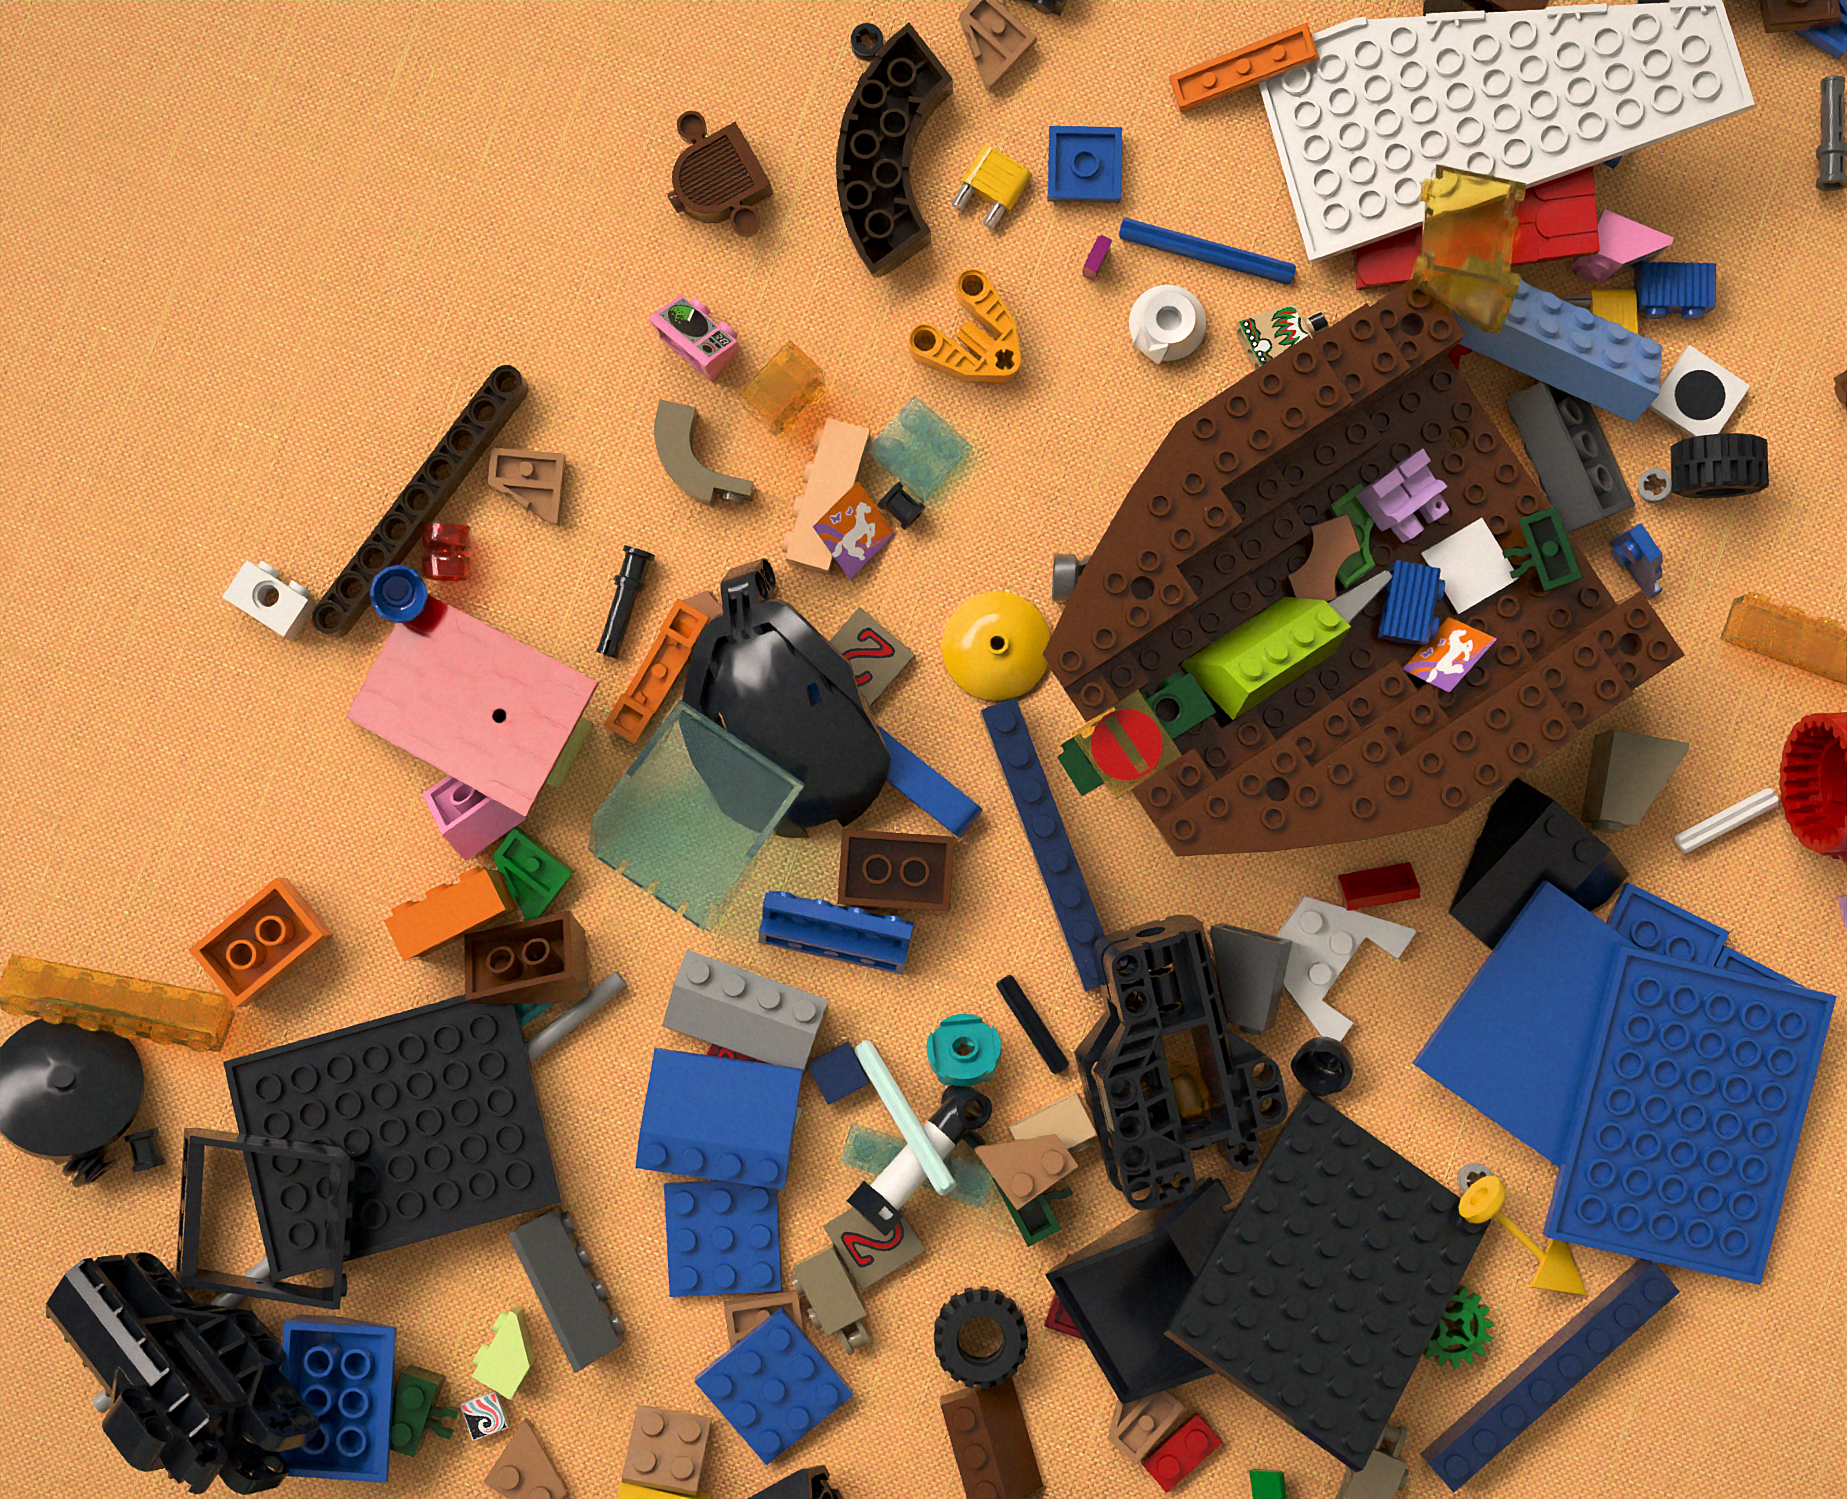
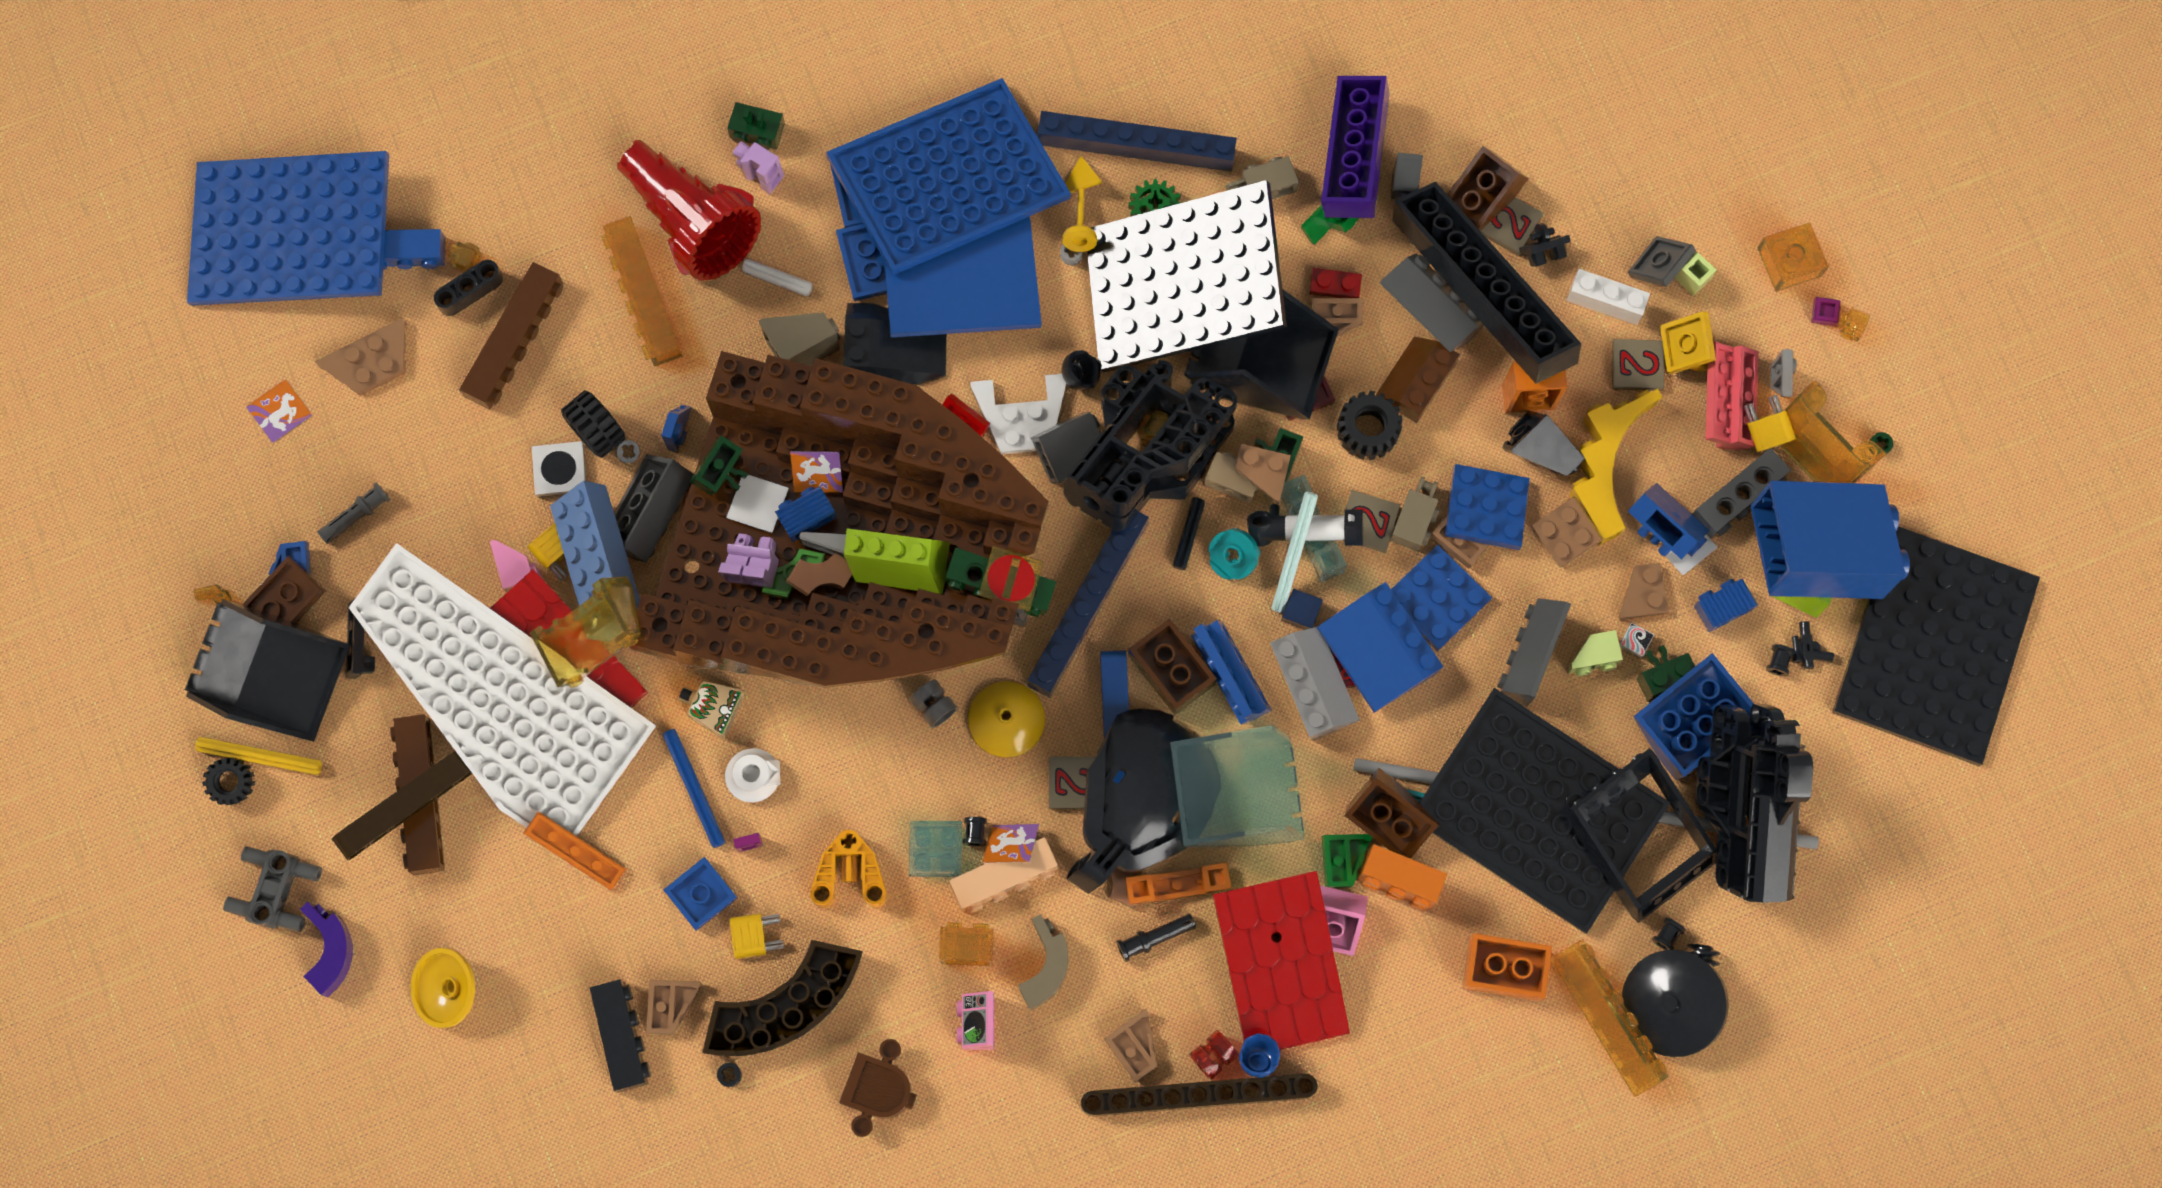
camera: 135 degrees left, 10 degrees down
(249, 594) = (1326, 1114): white brick -> none
(1675, 289) = (509, 525): blue brick -> none

